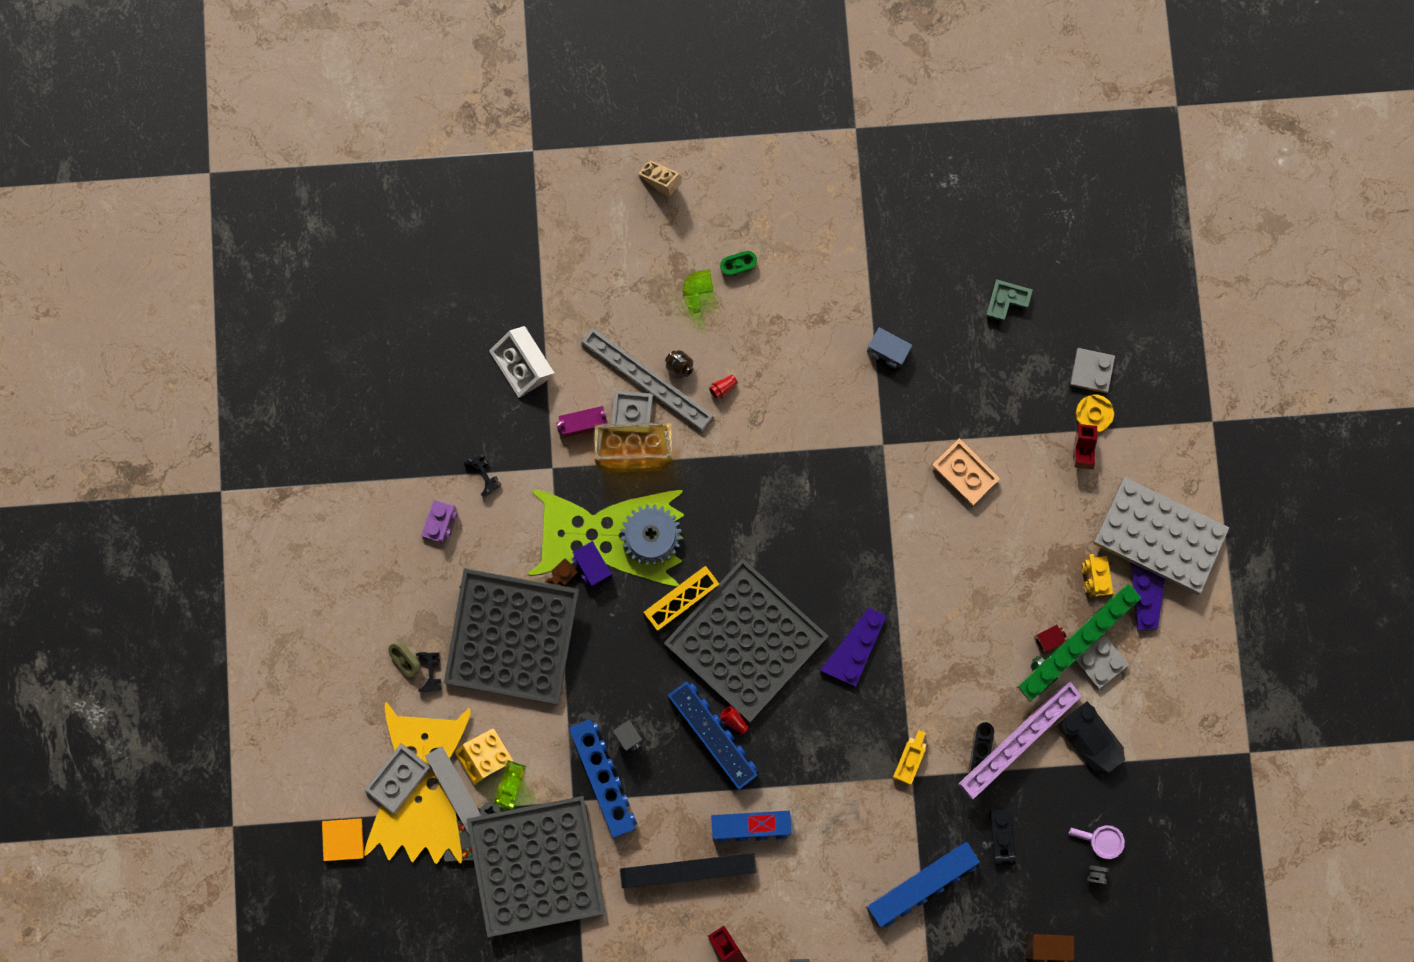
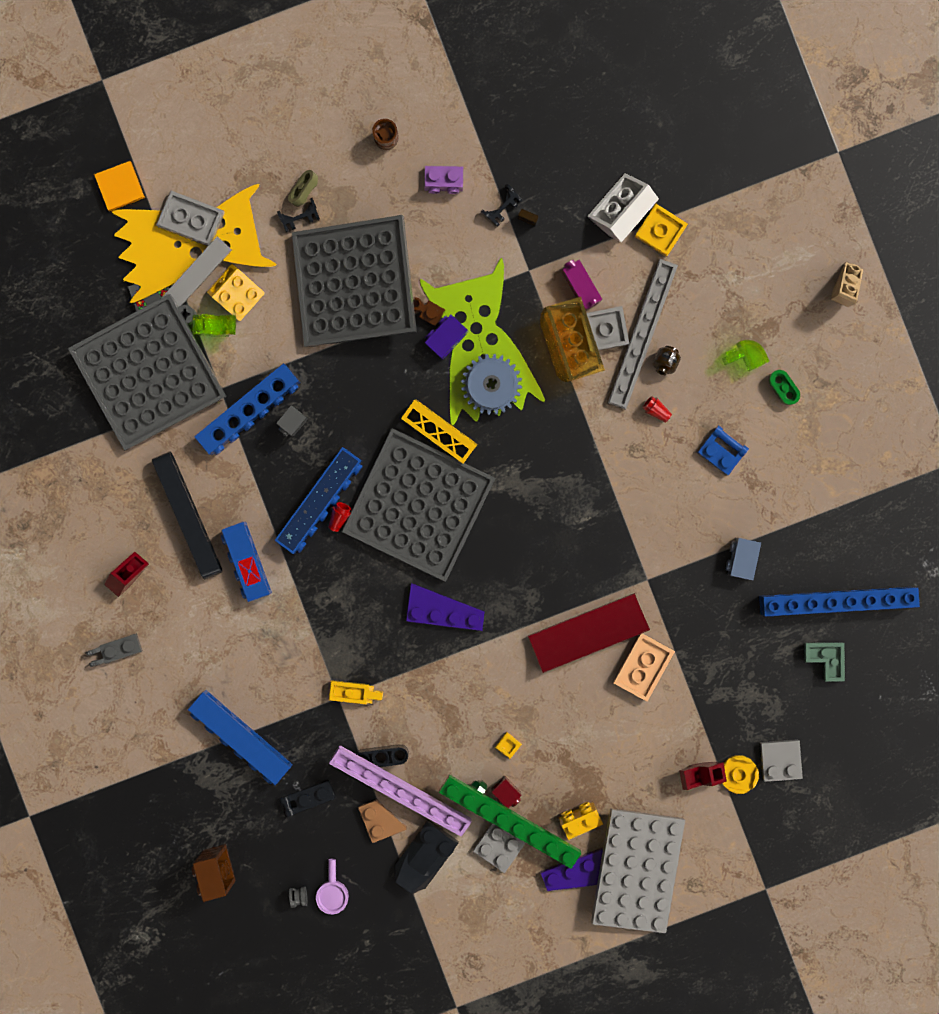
camera: 70 degrees right, 10 degrees up
(379, 563) = (385, 134): none -> reddish brown wheel
(502, 452) = (528, 217): none -> dark brown tile
(554, 333) = (661, 230): none -> yellow plate
(783, 343) = (720, 456): none -> blue plate
(917, 515) = (588, 632): none -> dark red arch
(955, 273) = (839, 601): none -> blue brick
(1005, 624) = (508, 745): none -> yellow tile
(1045, 771) = (380, 821): none -> medium nougat wing

